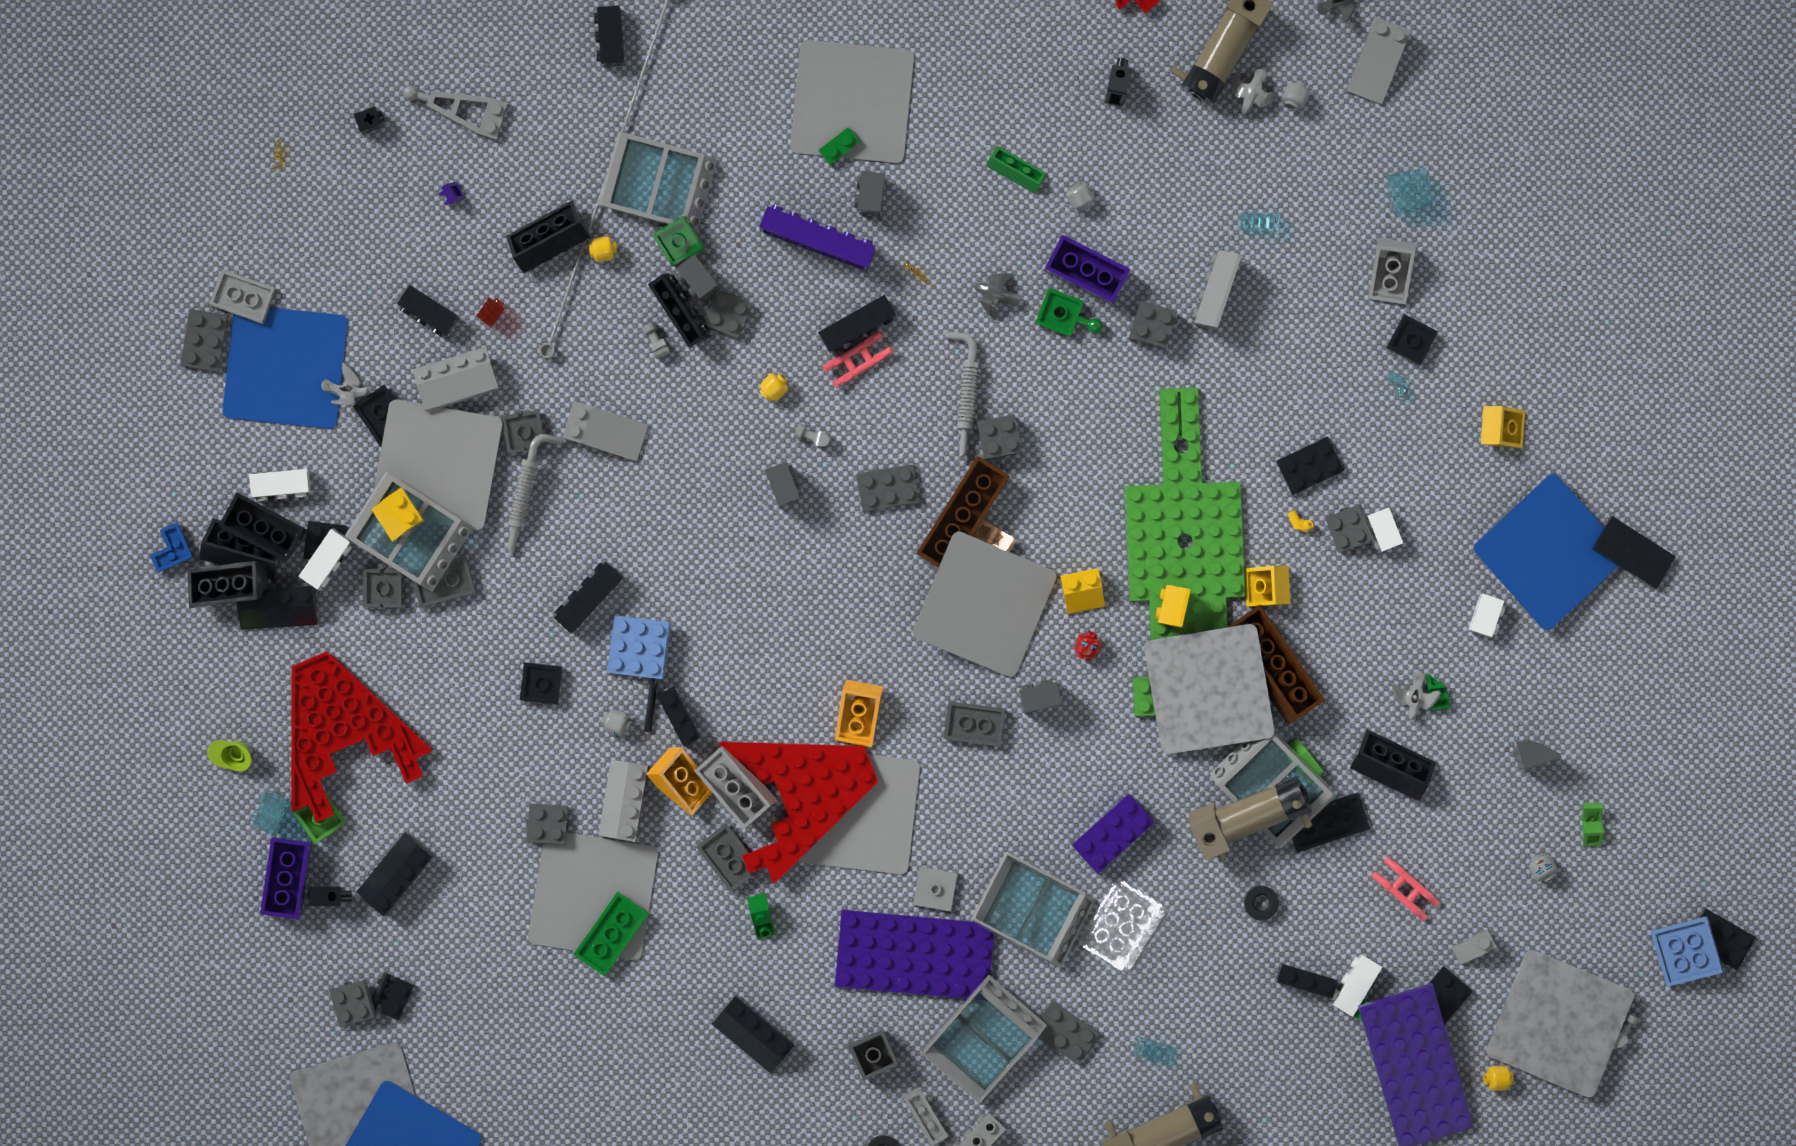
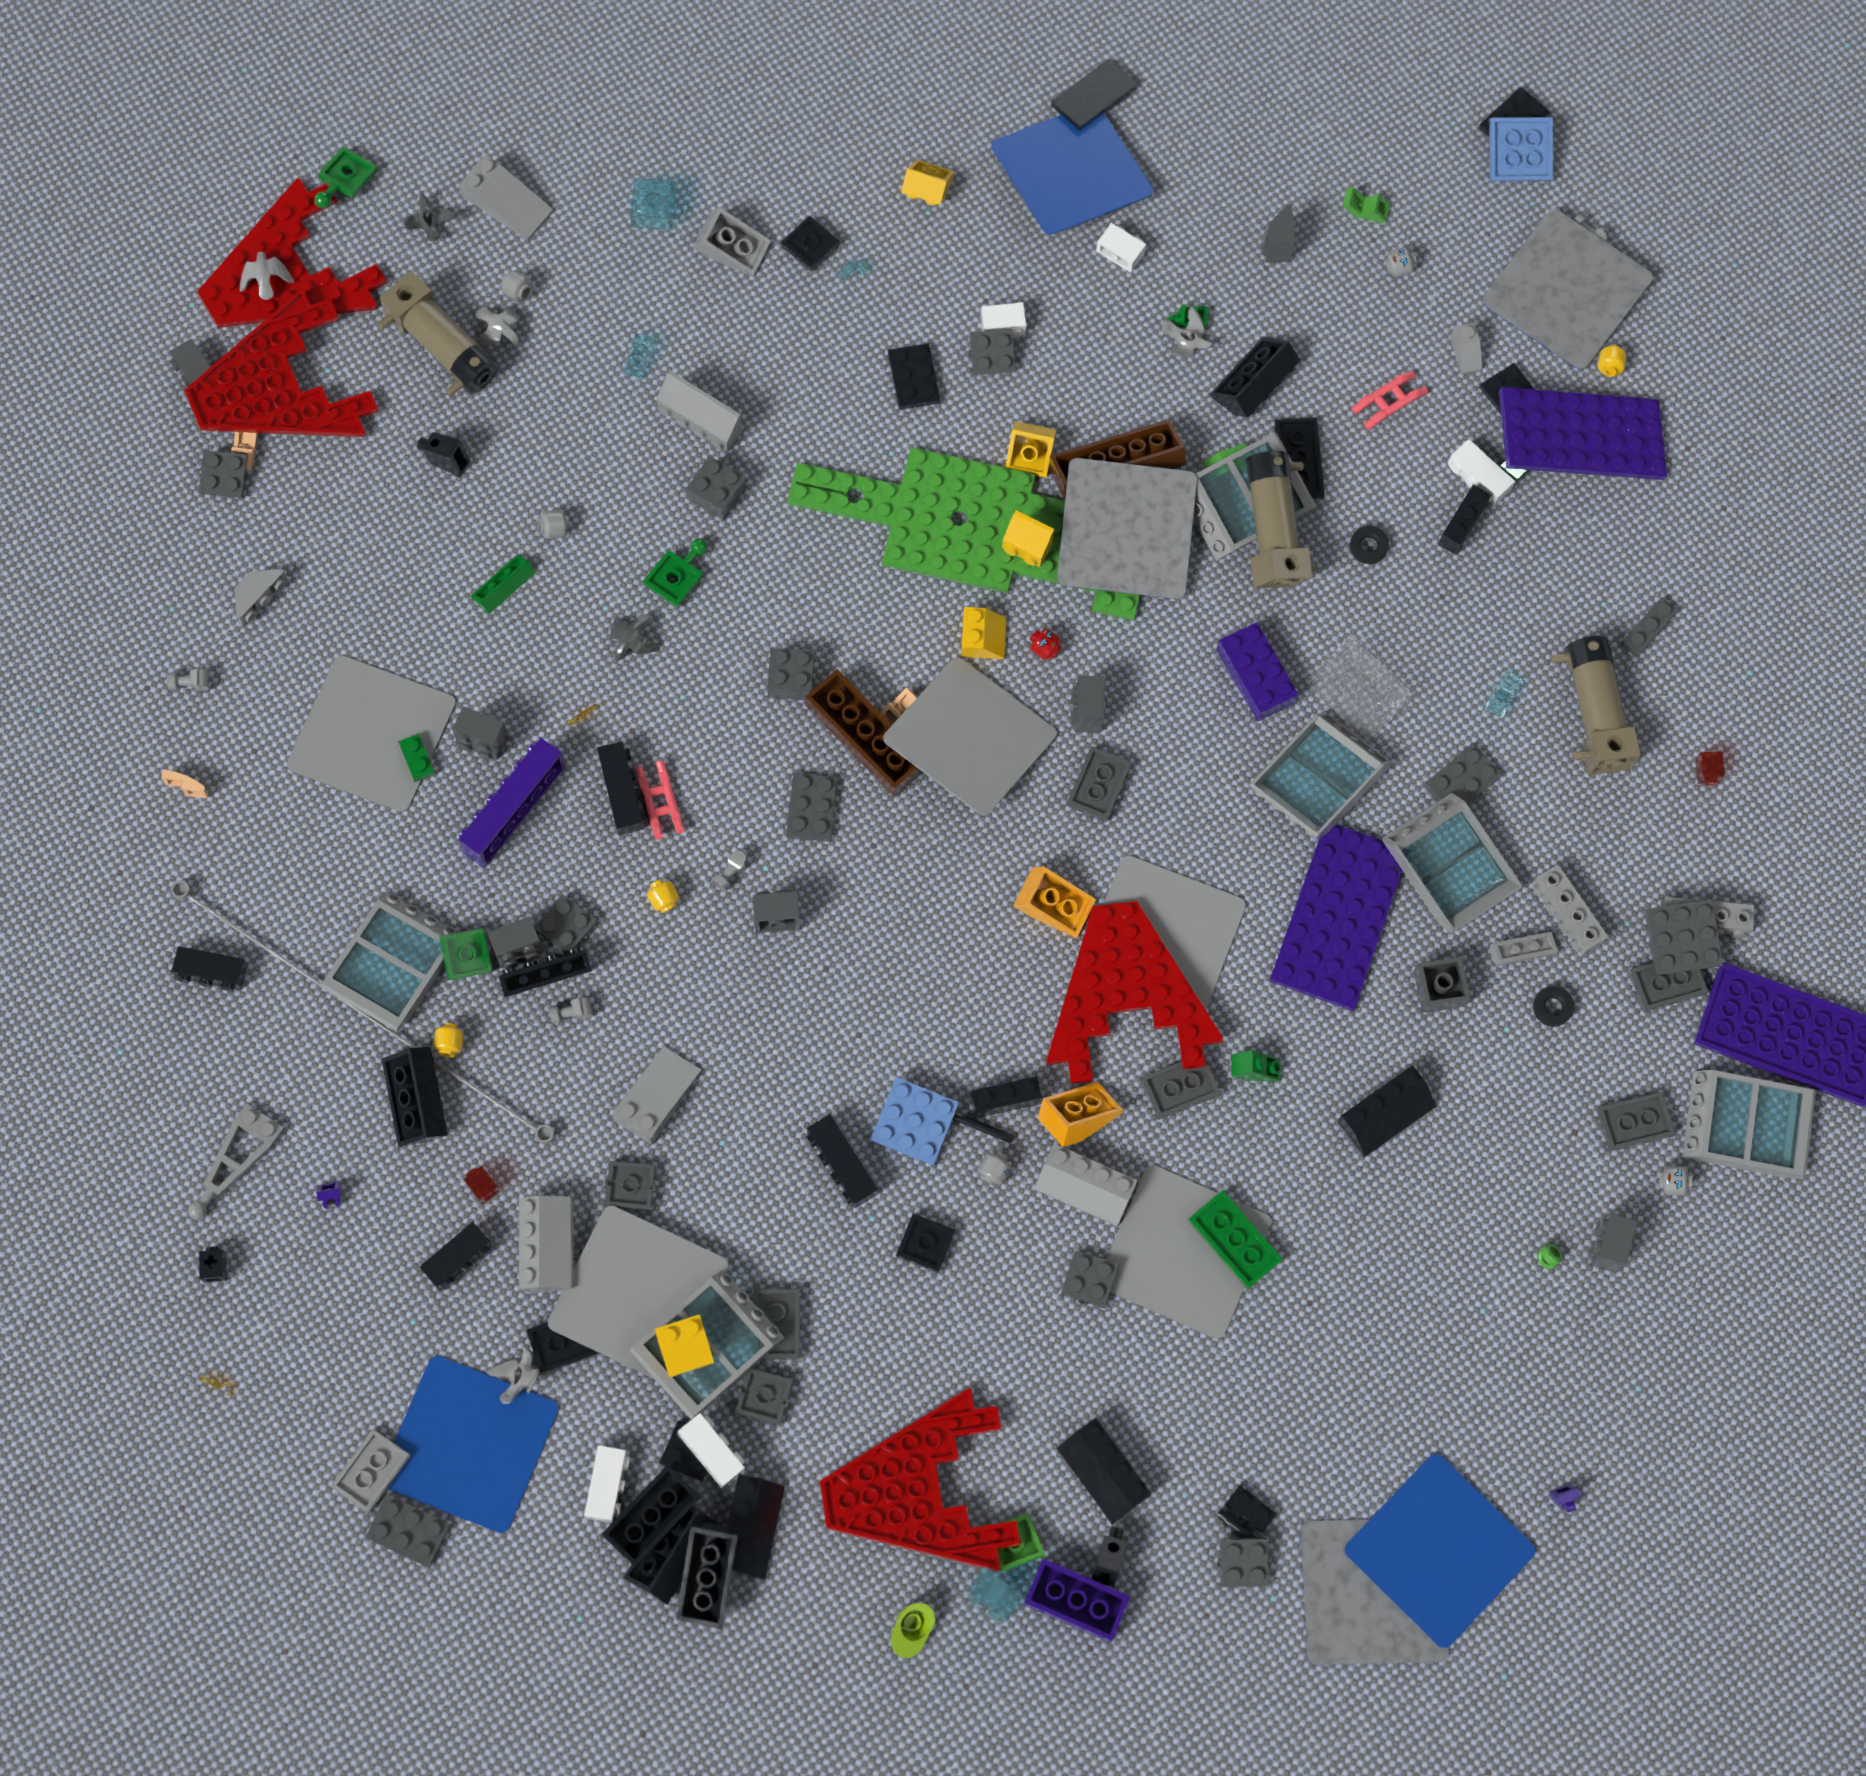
camera: 80 degrees left, 15 degrees down
(176, 551) = (649, 1631): blue plate -> none
(525, 487) = (695, 1199): light grey piece -> none
(735, 787) = (1103, 1052): light grey slope -> none
(935, 889) = (1271, 874): light grey plate -> none
(968, 389) = (727, 693): light grey piece -> none
(1087, 269) = (635, 536): dark purple brick -> none
(1300, 524) = (973, 401): yellow arm -> none

